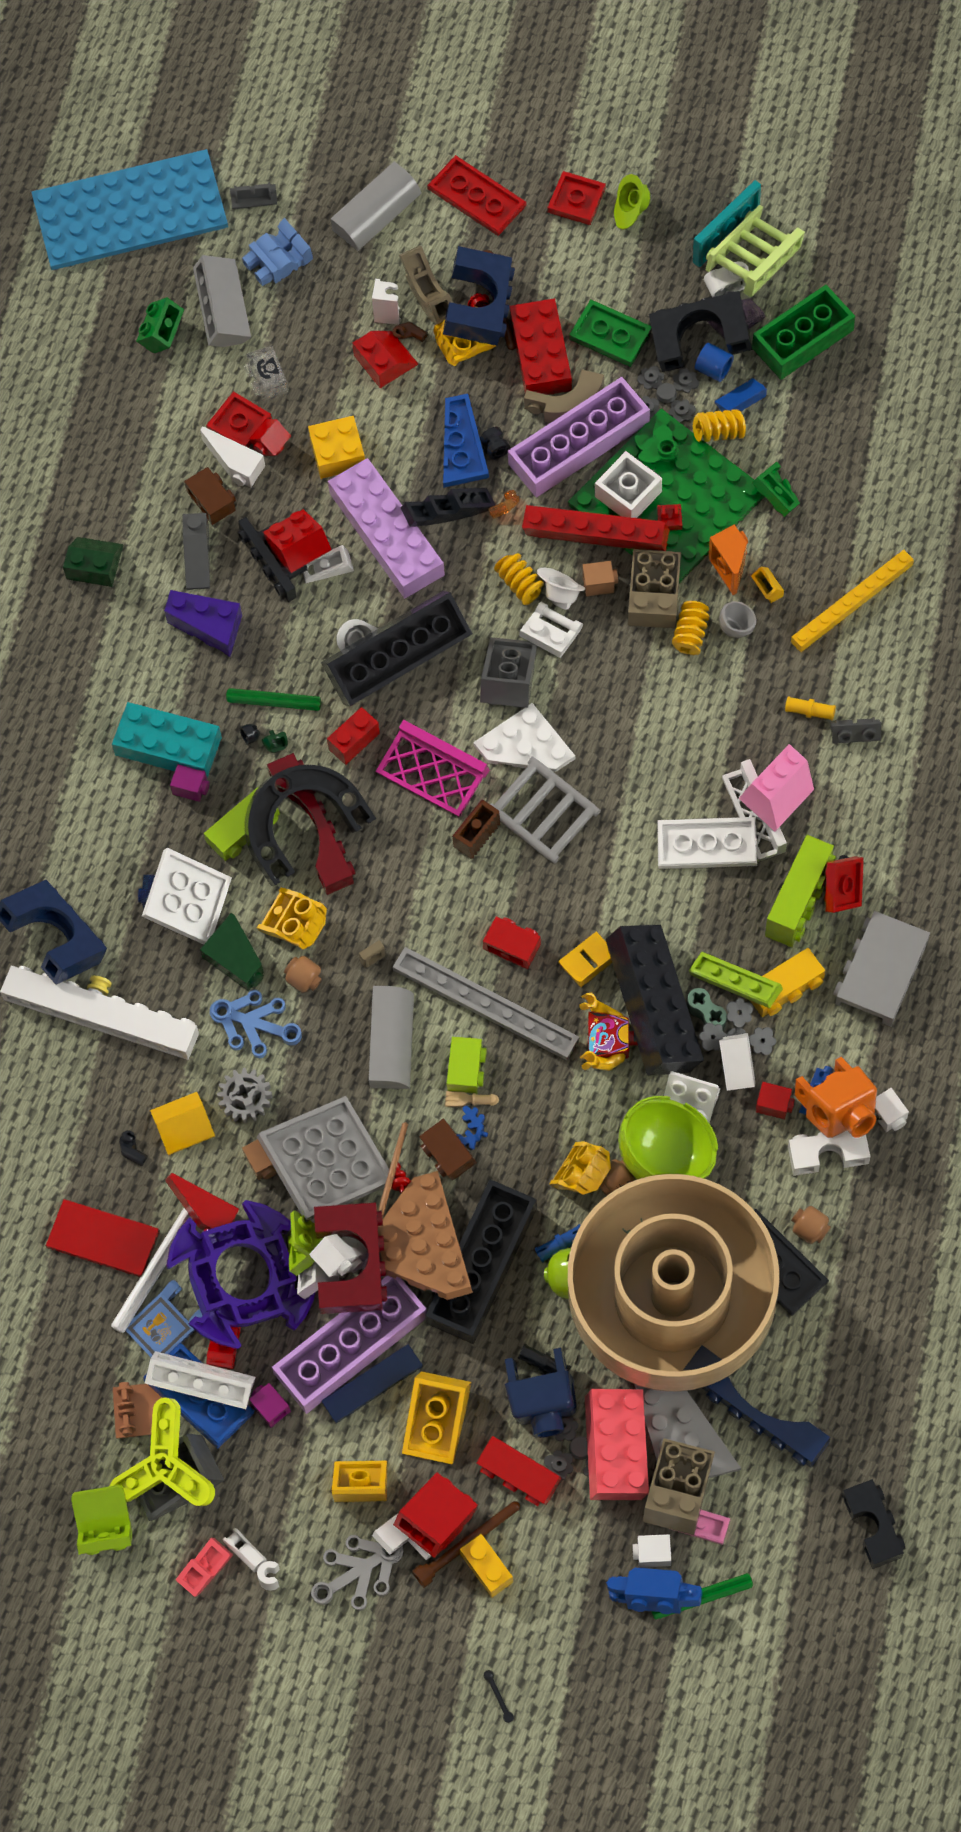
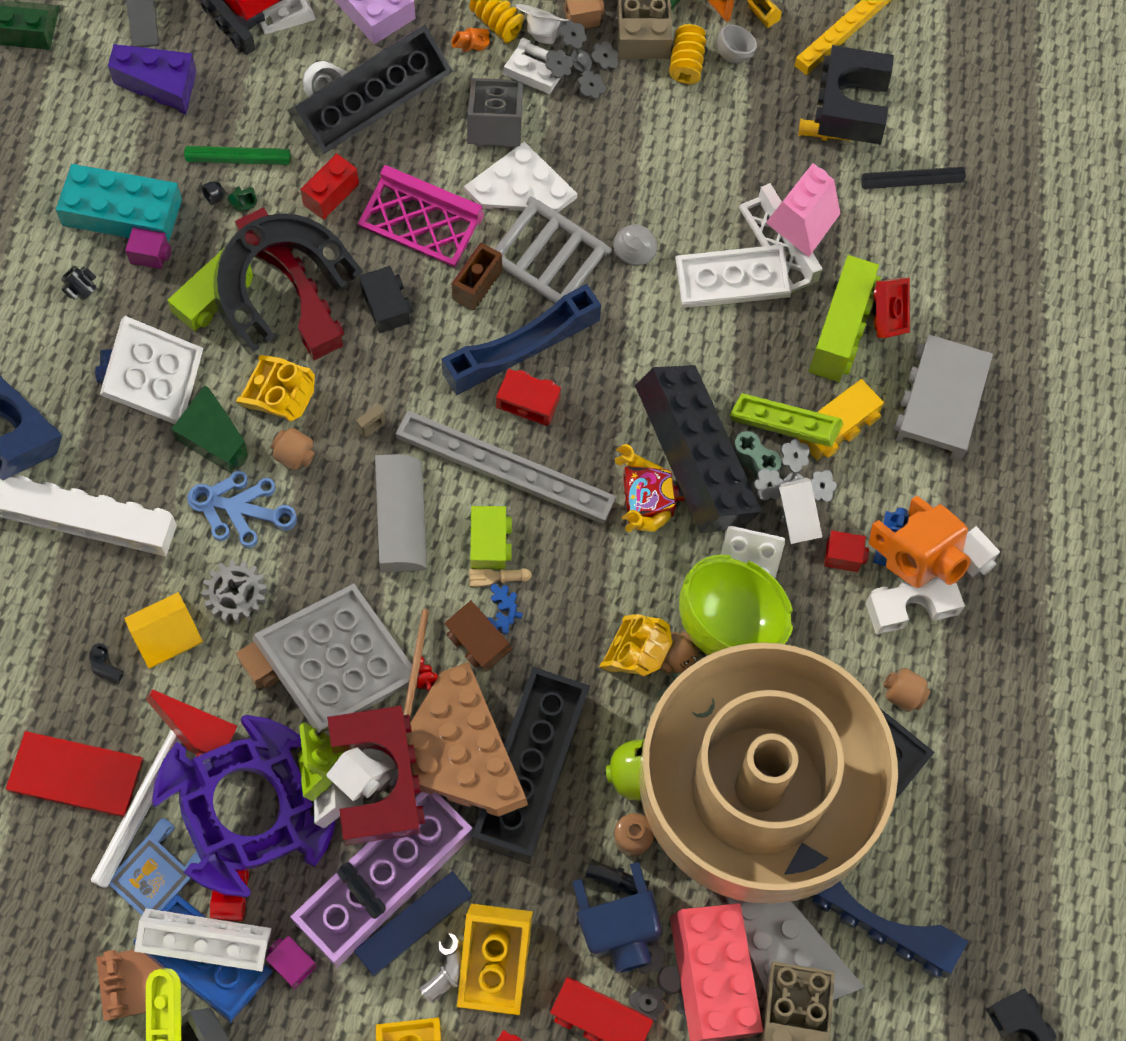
camera: 15 degrees left, 0 degrees up
(100, 984) = (56, 476): light yellow bush -> none
(127, 811) = (78, 282): none -> black gear
(330, 1350) = (361, 890): none -> black axle
(394, 844) = (385, 299): none -> black brick
(397, 1426) = (448, 975): none -> light grey piece
(478, 906) = (480, 362): none -> dark blue arch
(494, 600) = (471, 39): none -> orange piece
(559, 1242) = (620, 735): blue pin -> none
(560, 1327) = (633, 835): none -> medium nougat head
(578, 967) = (606, 419): yellow piece -> none
(592, 627) = (580, 60): none -> dark grey plant
(622, 807) = (635, 245): none -> light grey piece
(836, 651) = (845, 117): none -> black arch
(863, 731) = (890, 149): dark grey hinge -> none
(886, 759) = (913, 177): none -> black axle

